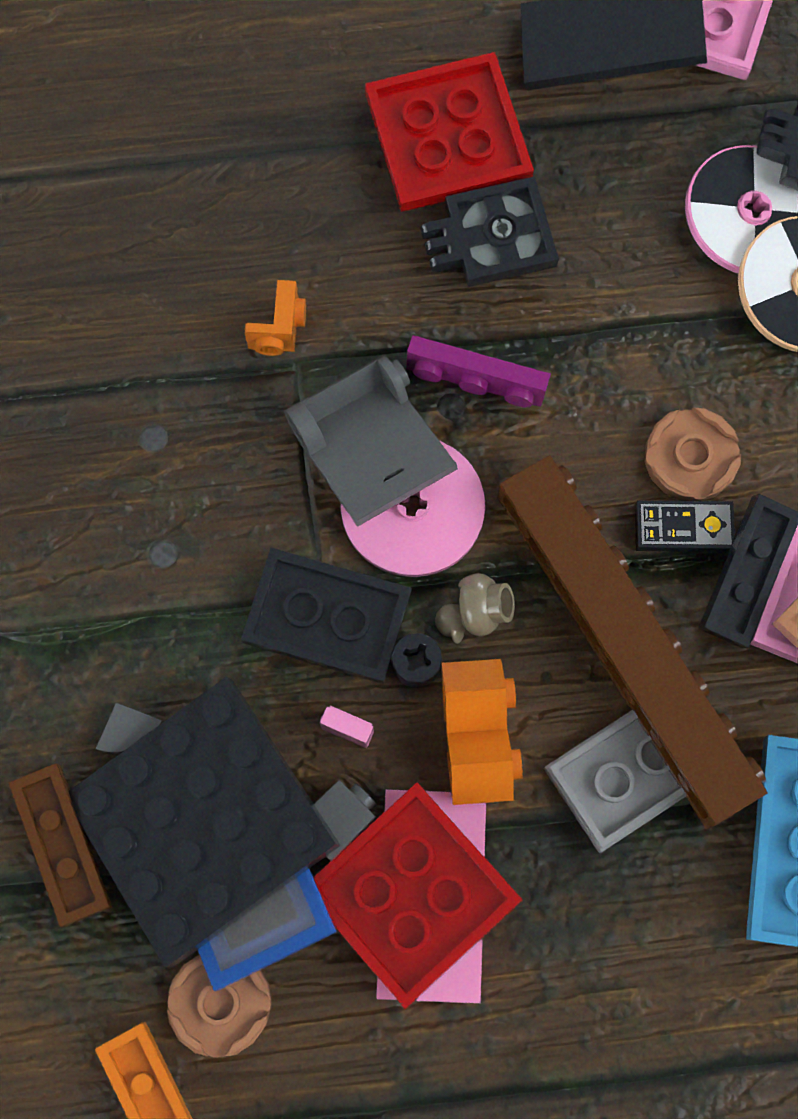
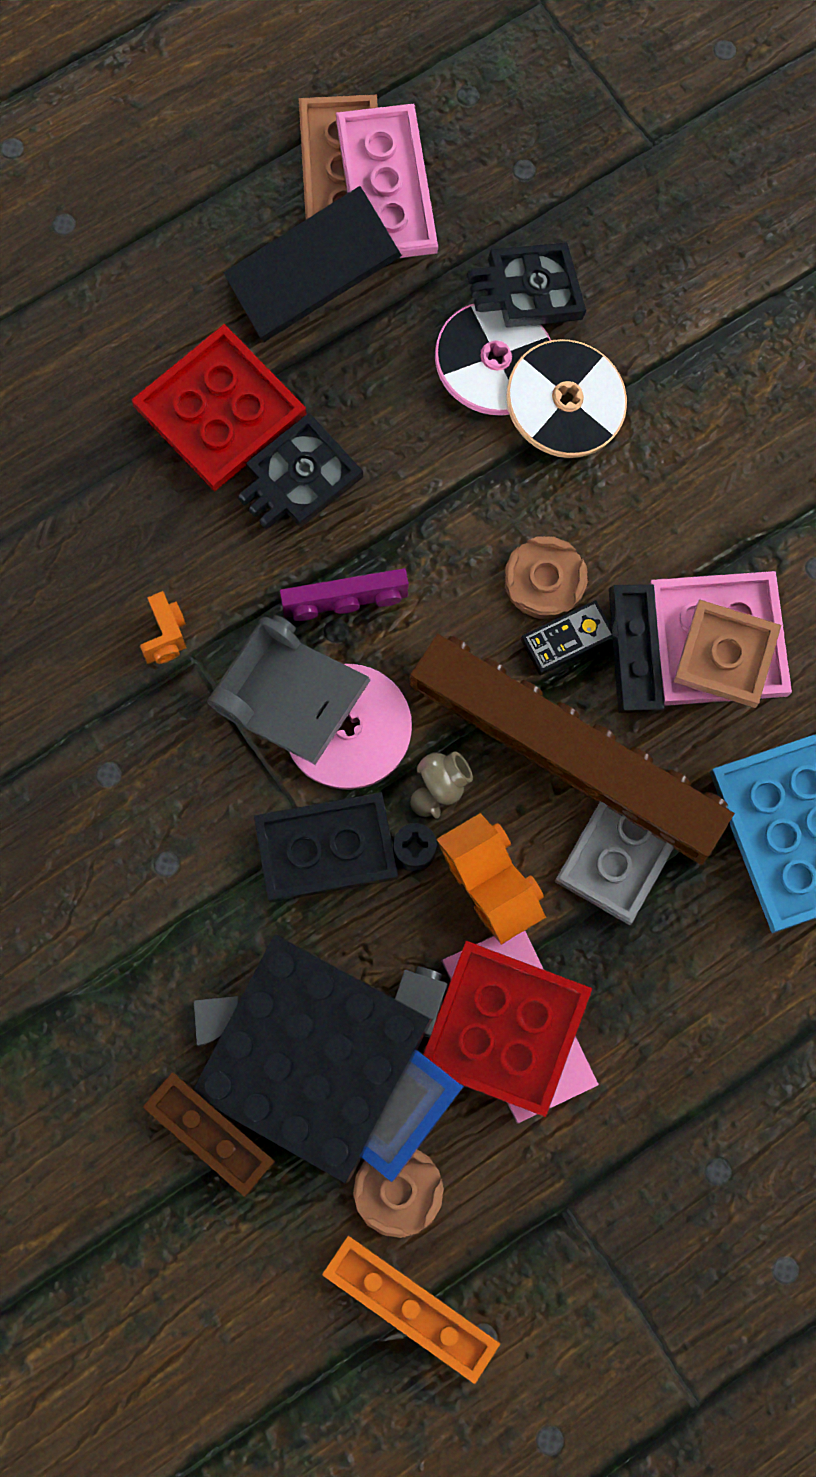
camera: 30 degrees left, 0 degrees up
(347, 726) = (388, 926): bright pink tile -> none

